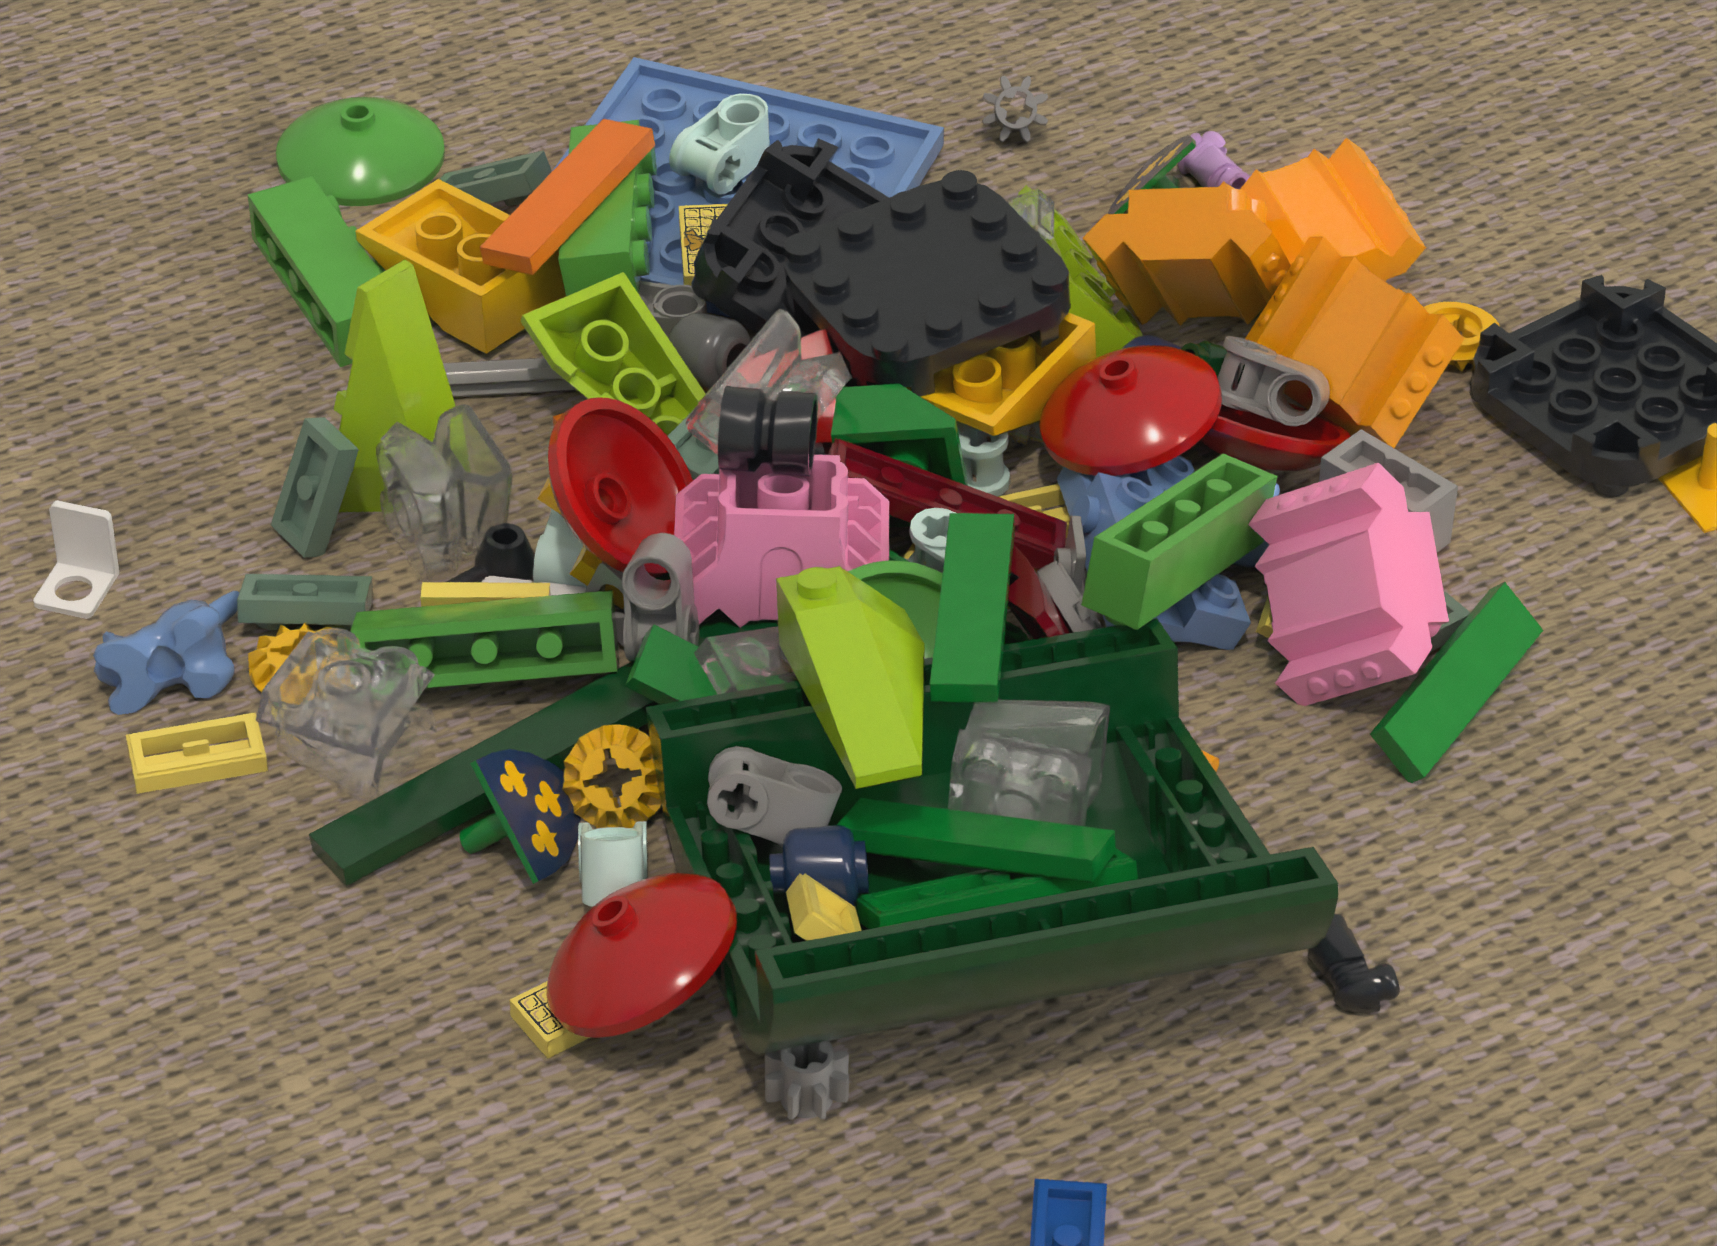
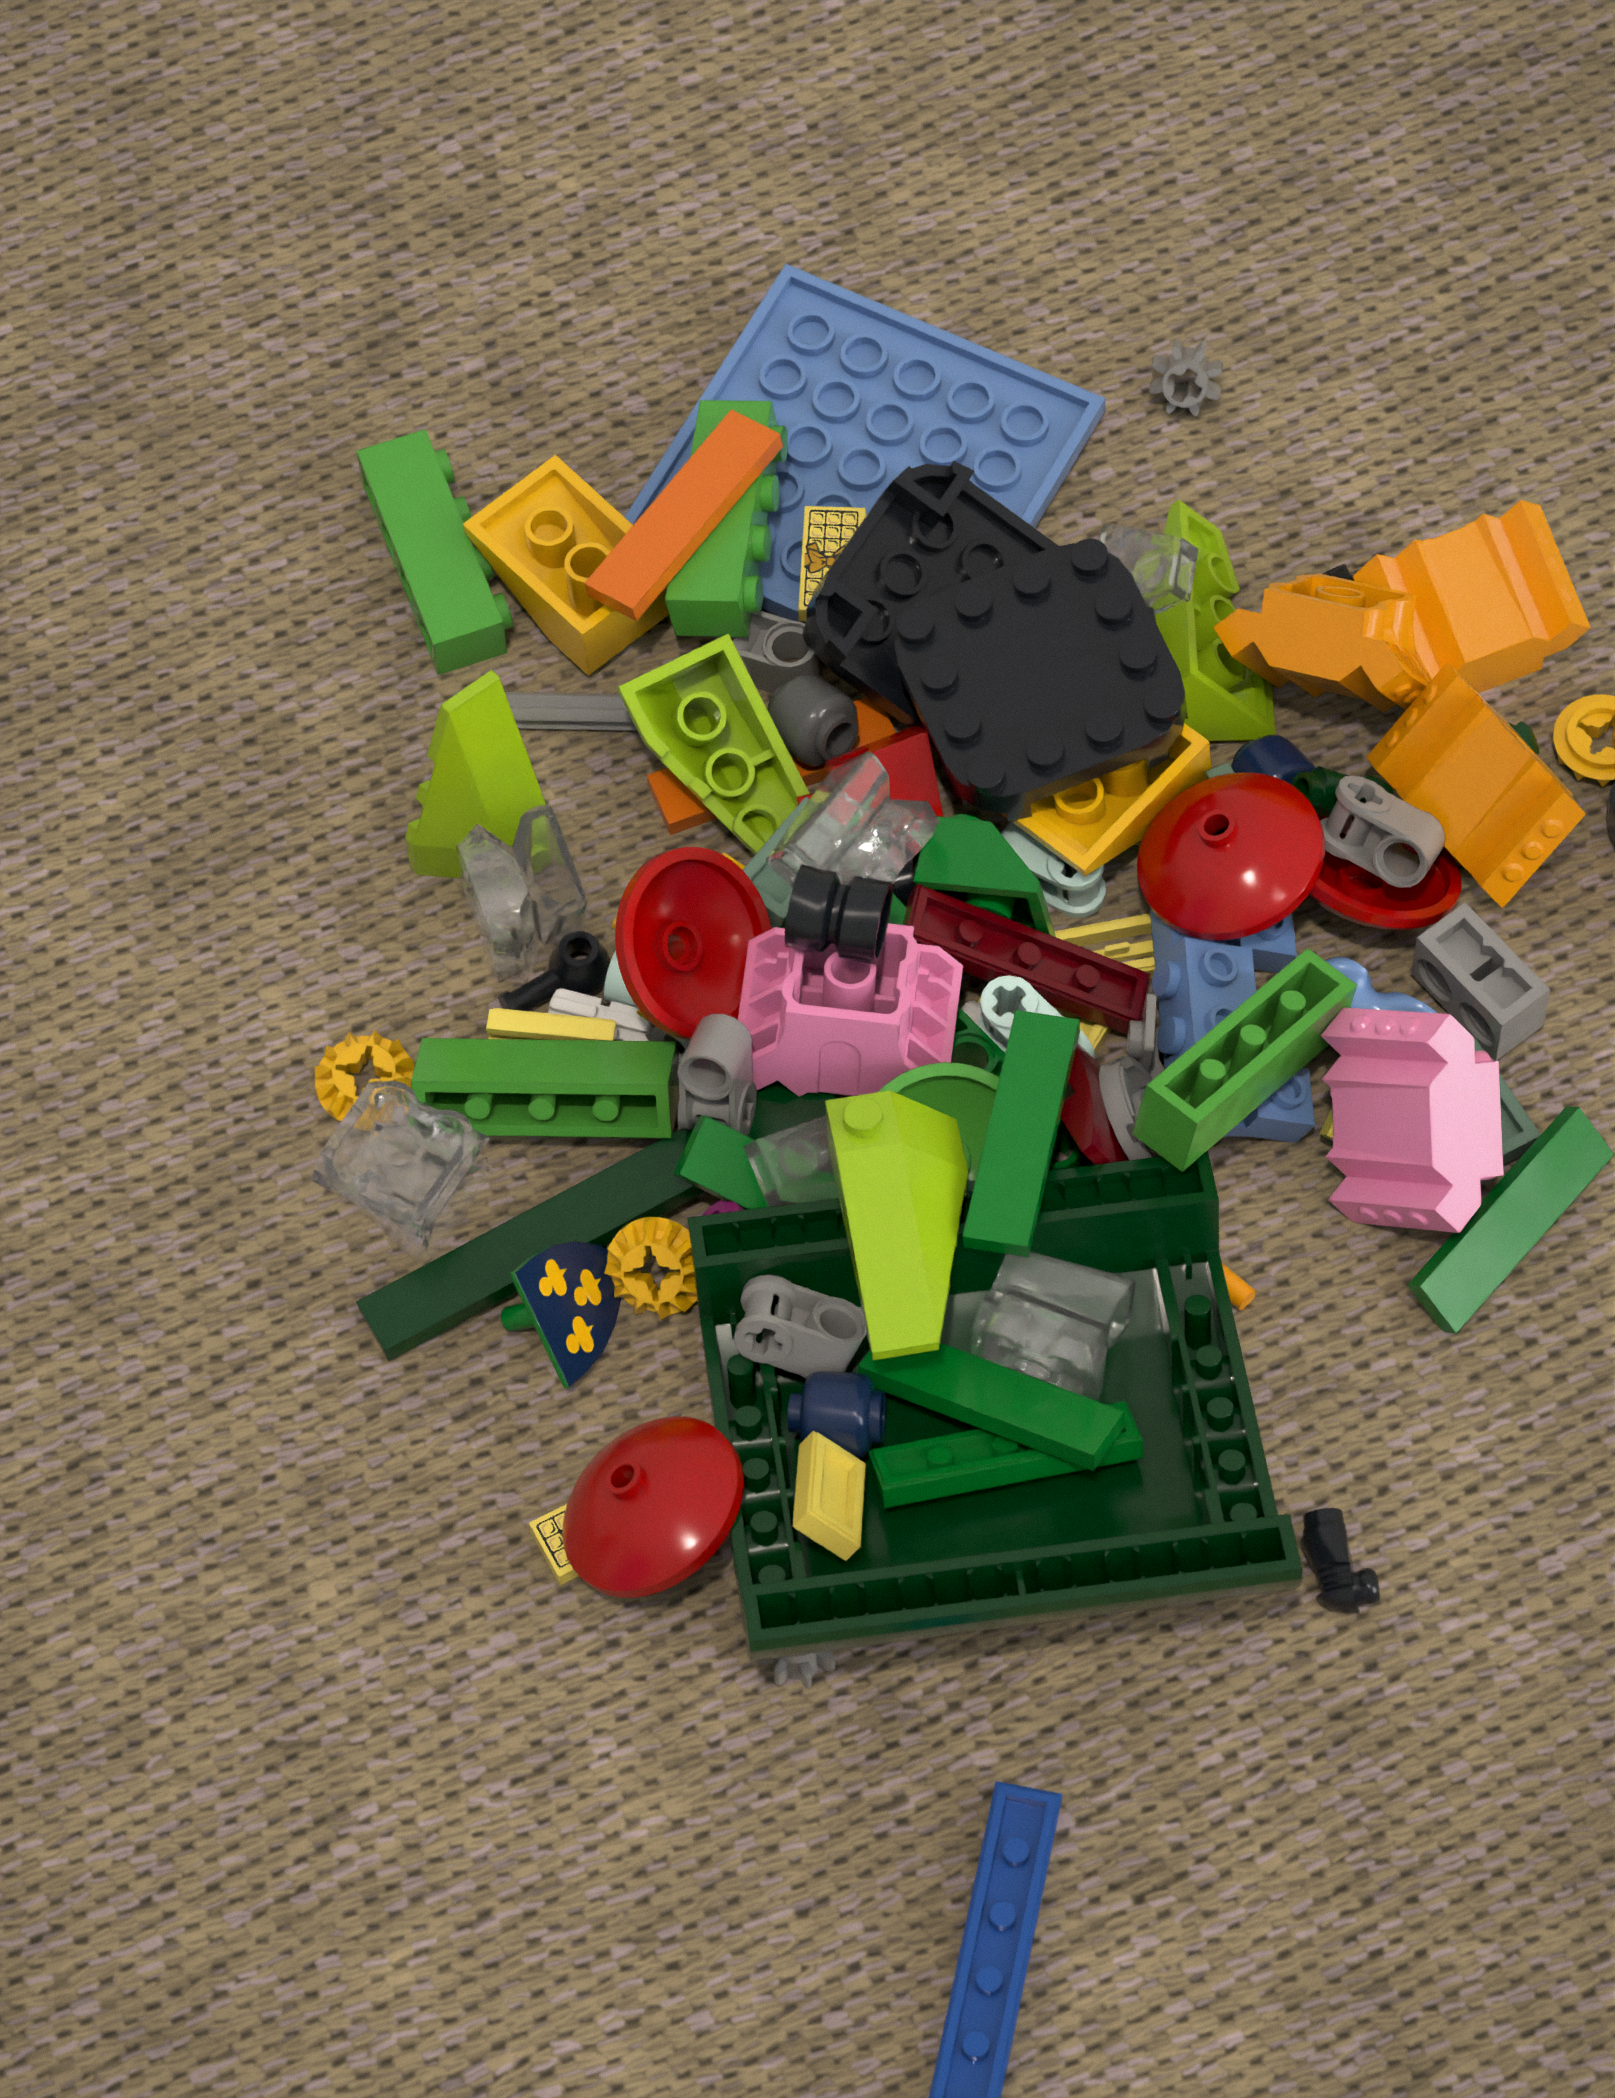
camera: 10 degrees right, 20 degrees up
(83, 553) = (160, 919): white bracket -> none
(176, 649) = (246, 1059): medium blue animal -> none
(198, 760) = (256, 1204): light yellow tile -> none
(298, 599) = (375, 1003): sand green plate -> none
(314, 487) = (393, 870): sand green plate -> none
(362, 150) = (487, 390): bright green dish -> none
(503, 179) = (613, 443): sand green plate -> none
(610, 859) = (641, 1375): light aqua piece -> none
(723, 143) = (855, 429): light aqua piece -> none
(1154, 172) = (1323, 497): shield -> none
(1210, 164) = (1386, 479): lavender arm -> none

